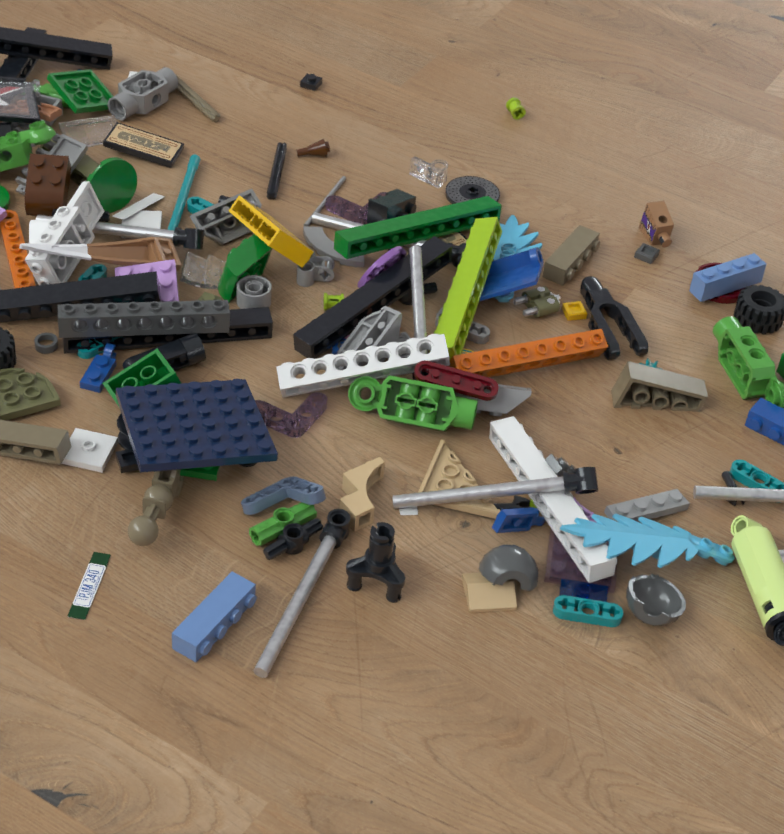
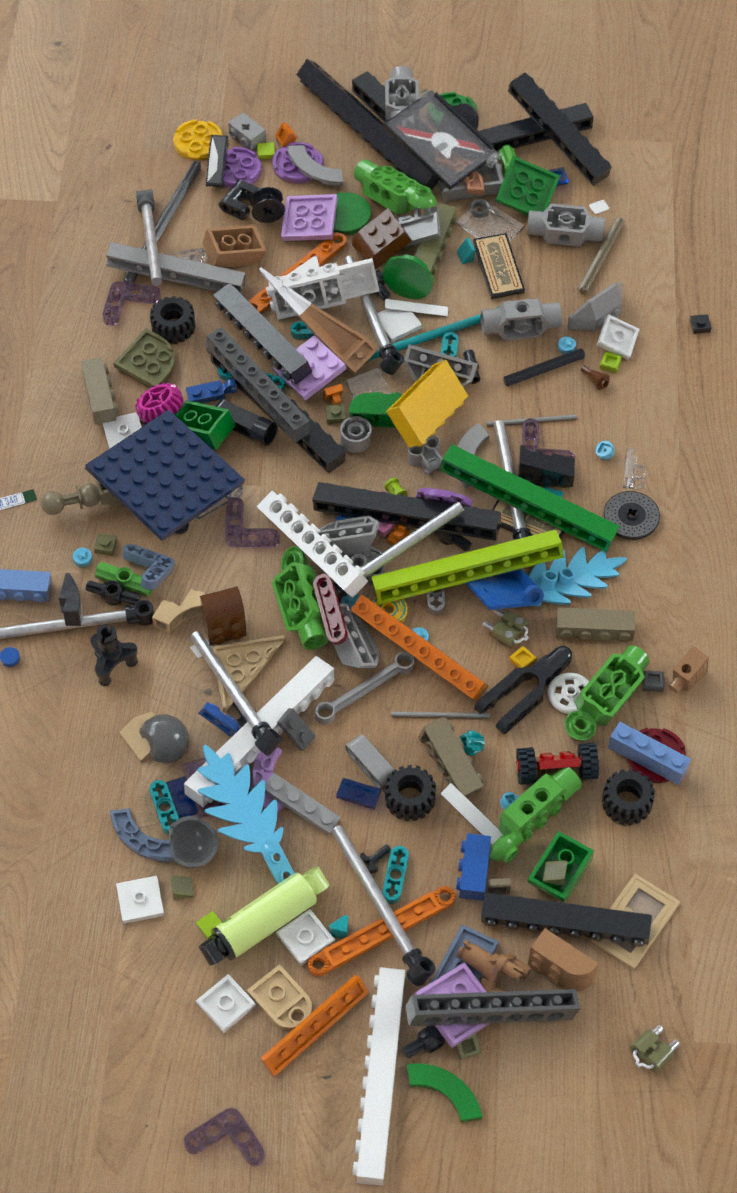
camera: 65 degrees right, 15 degrees up
(70, 122) = (479, 202): none -> dark grey piece
(88, 402) = (157, 401): none -> dark pink gear
(107, 150) = (466, 252): none -> teal slope
(188, 291) = (333, 393): none -> orange tile
(220, 153) = (521, 319): none -> light grey brick
(221, 522) = (105, 544): none -> olive plate
(223, 547) = (82, 557): none -> medium azure tile
(249, 114) = (593, 312): none -> light grey wedge
(265, 150) = (566, 345): none -> medium azure tile
(284, 569) = (70, 602): none -> black slope
(287, 119) = (618, 337): none -> white plate
(305, 137) = (610, 362): none -> lime tile
(307, 660) = (9, 657): none -> blue tile
(395, 176) = (605, 450): none -> medium azure tile
(402, 458) = (223, 616): none -> reddish brown brick
(539, 412) = (364, 688): none -> light grey piece
(598, 384) = (439, 714): none -> light grey axle
(616, 651) = (136, 840): none -> sand blue tile
(626, 442) = (369, 760): none -> light grey beam
(631, 298) = (559, 681): none -> white plate
(651, 274) = (607, 692): none -> bright green brick
(657, 465) = (358, 793): none -> clear blue plate
(681, 429) = (410, 778): none -> black tyre
(689, 677) = (140, 899): none -> white plate
(692, 639) = (181, 887): none -> olive slope
(697, 344) = (586, 761): none -> black plate
(722, 378) = (507, 799): none -> medium azure tile
(724, 402) = (471, 813): none -> white sticker
(749, 634) = (207, 923): none -> lime tile

